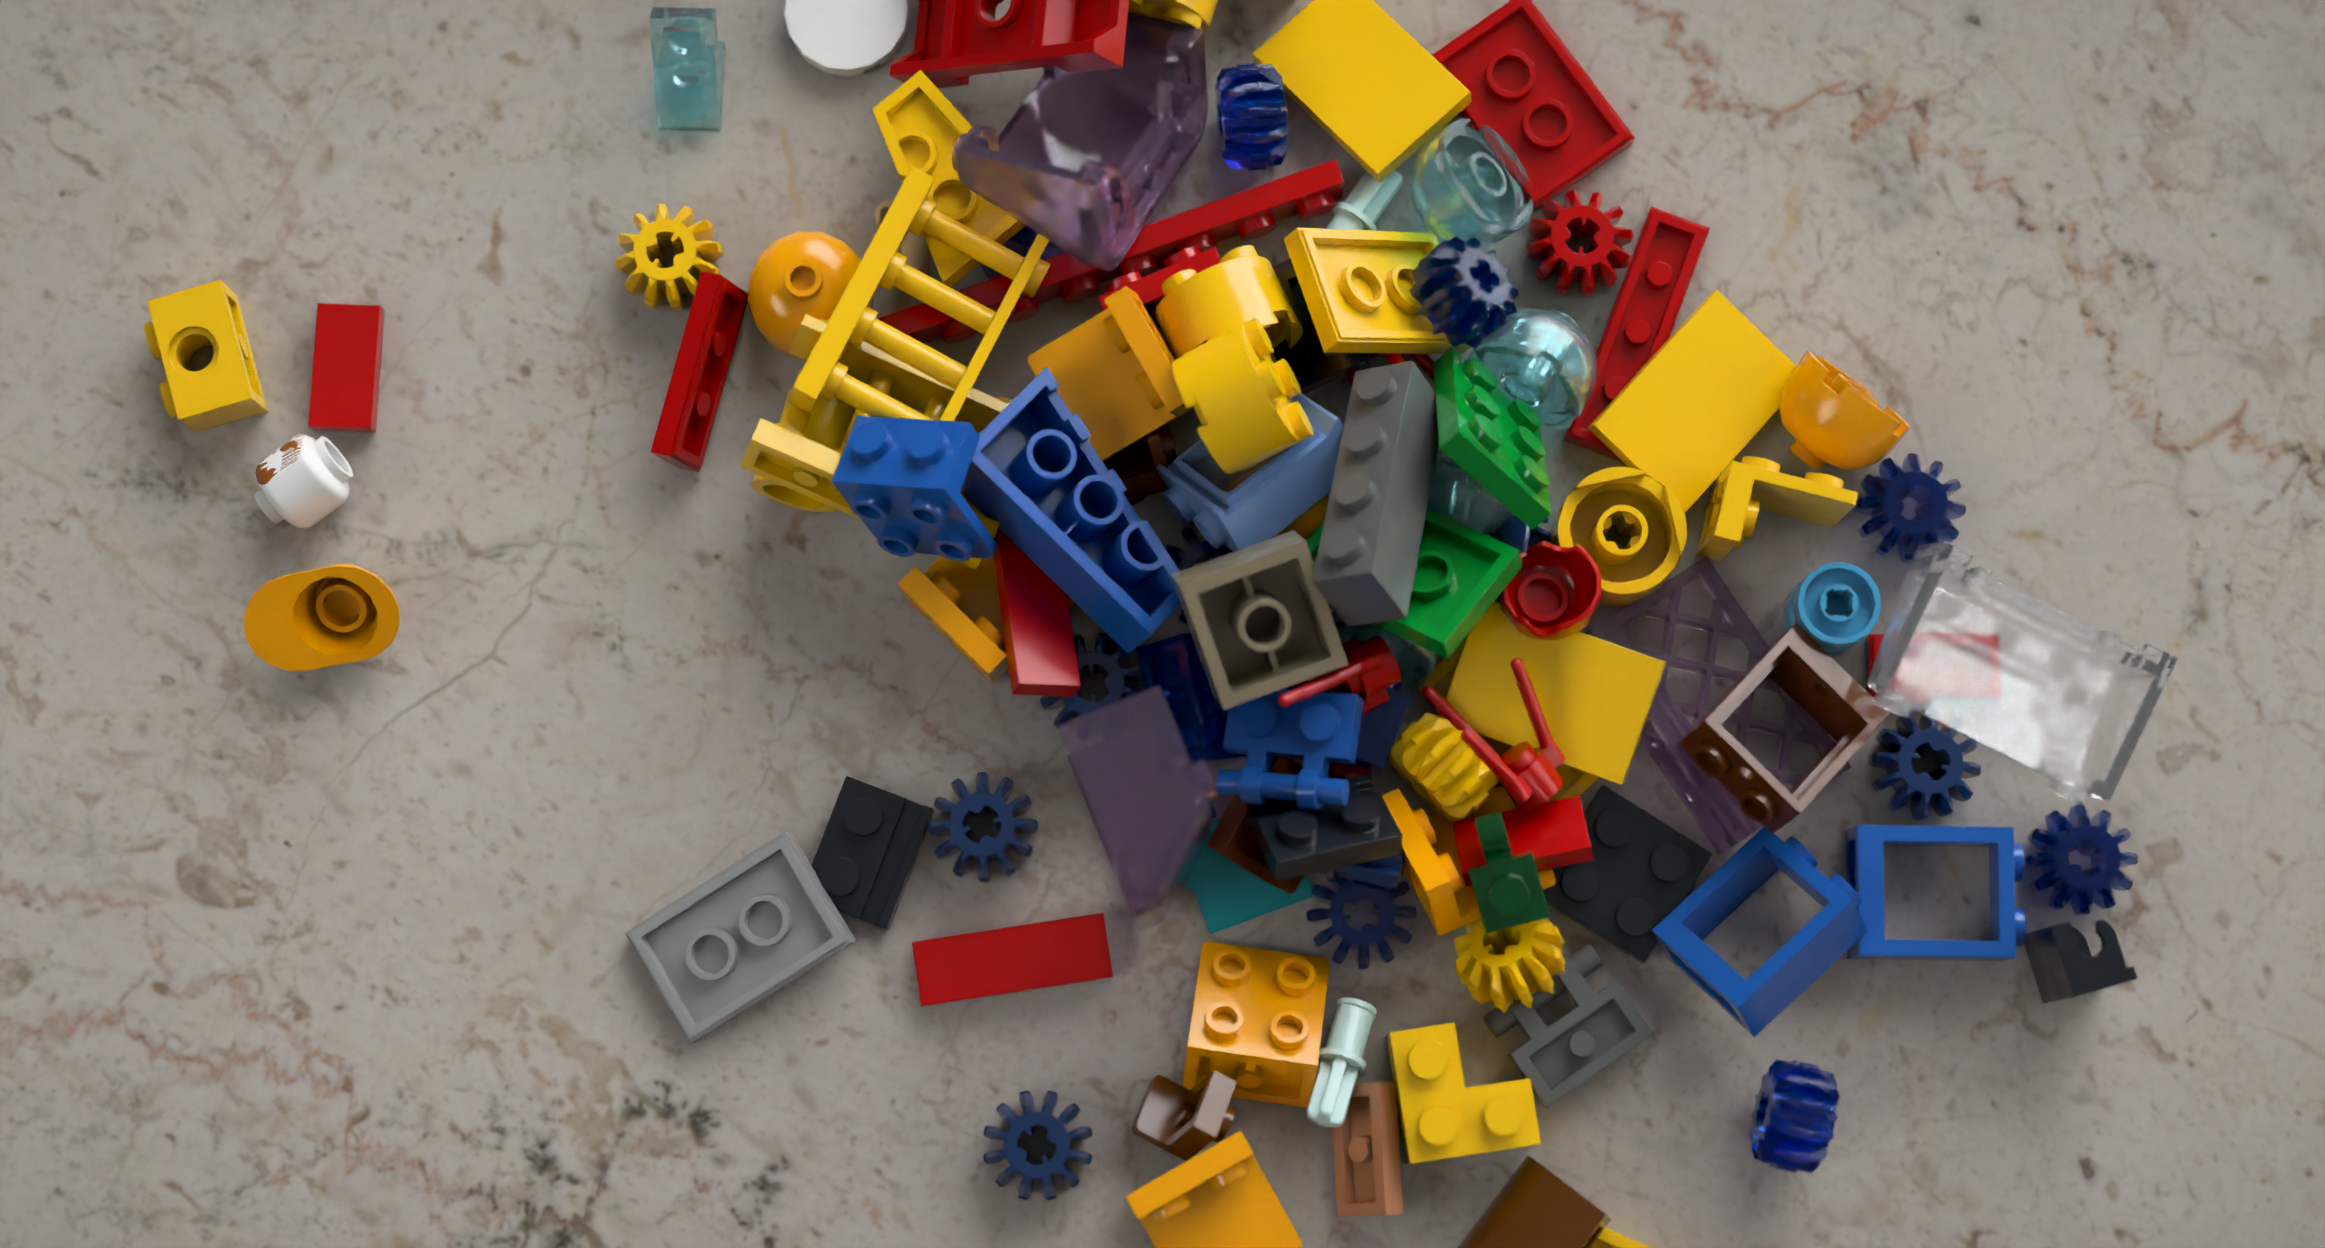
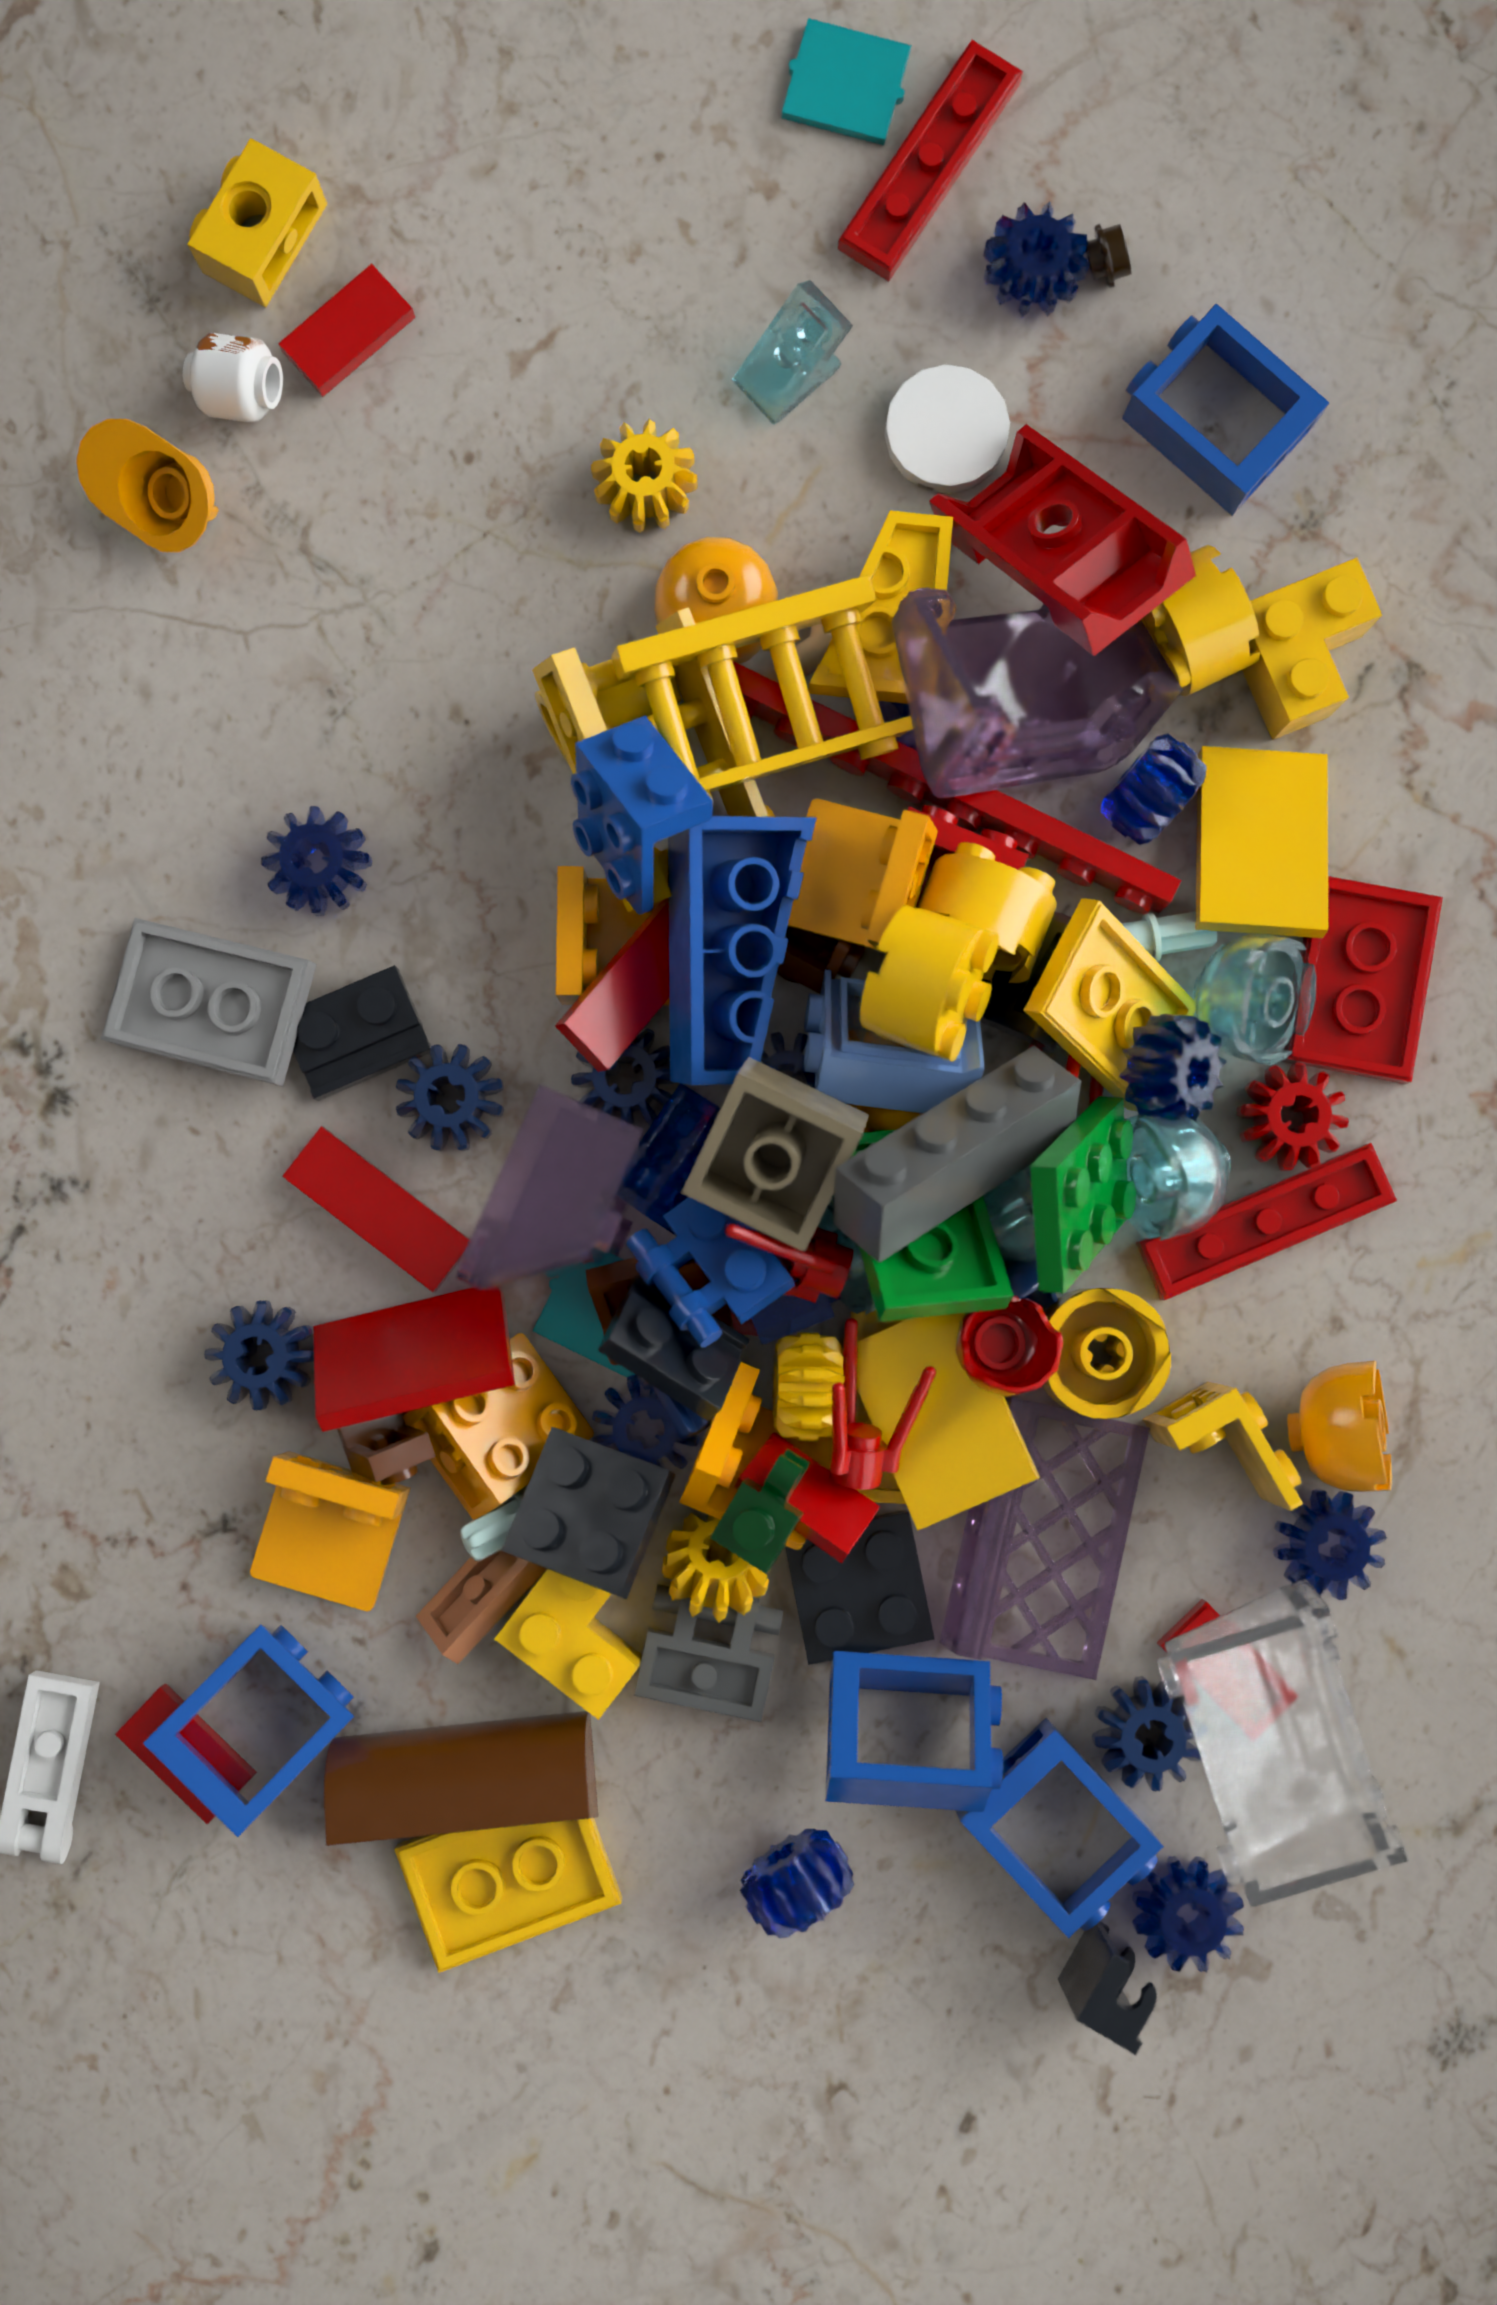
camera: 40 degrees right, 5 degrees up
(700, 372) = (582, 578): red tile -> none
(705, 740) = (331, 841): none -> clear blue gear
(1147, 1031) = (411, 1357): none -> red tile
(1384, 1005) = (589, 1512): none -> black plate
(1696, 400) = (1258, 1313): yellow tile -> none
(1834, 606) = (1198, 1559): dark azure wheel -> none
(1840, 708) = (1130, 1612): reddish brown window -> none

